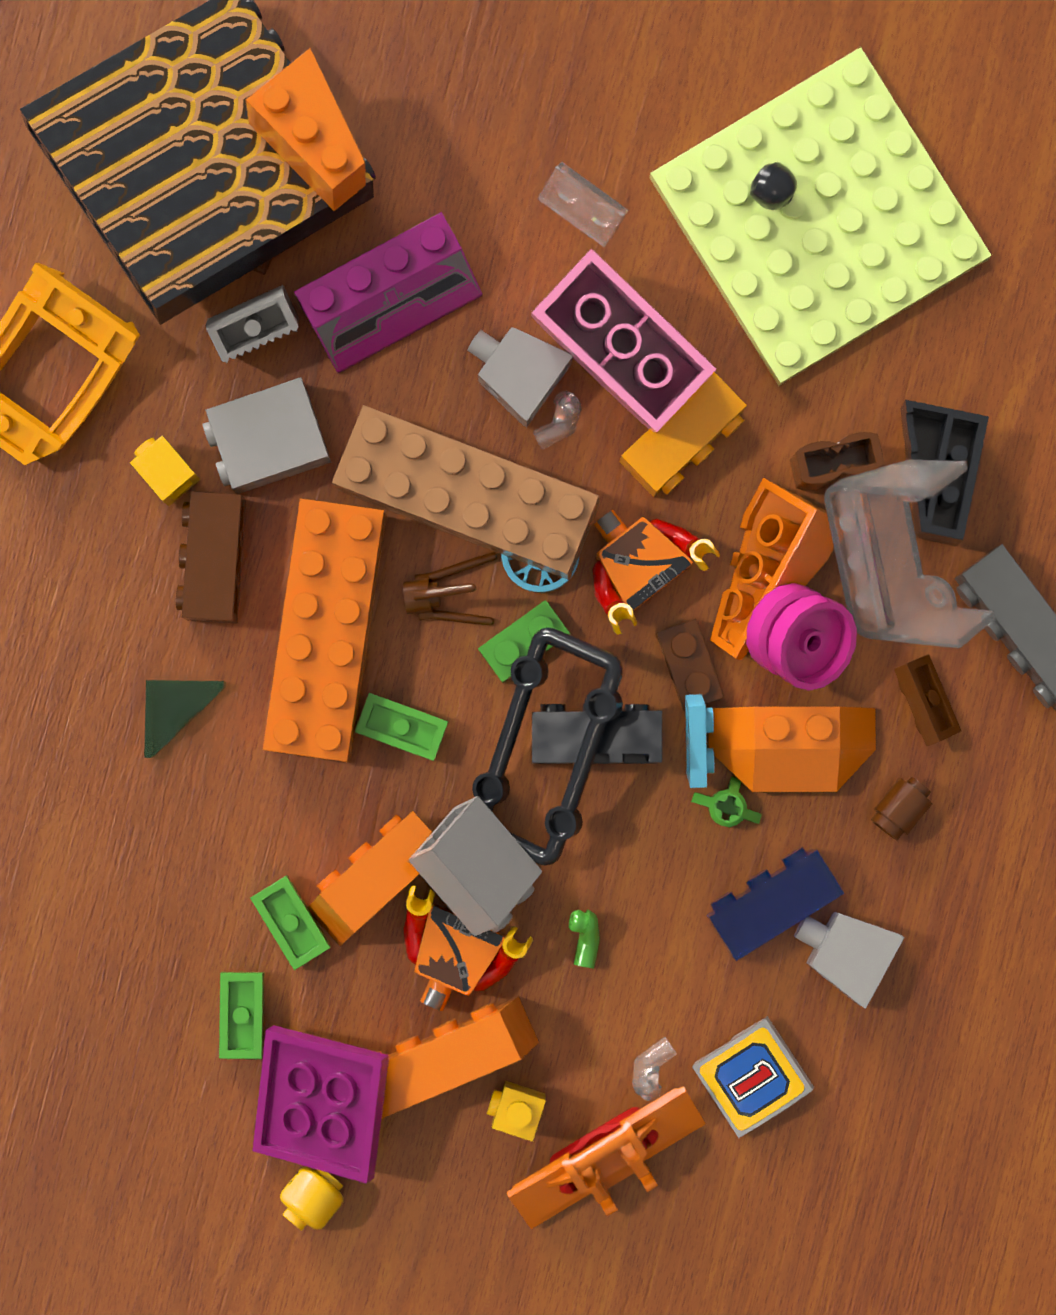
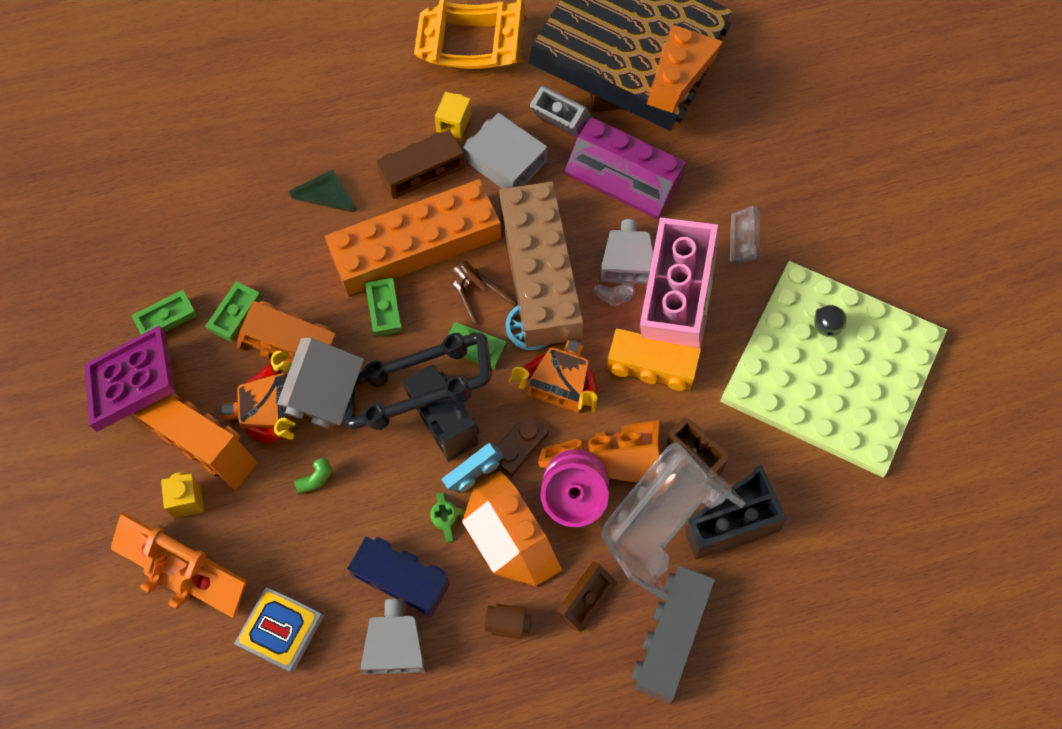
camera: 65 degrees right, 20 degrees down
(311, 1198) = (68, 410): yellow head -> none
(647, 1066) = (251, 560): clear arm -> none

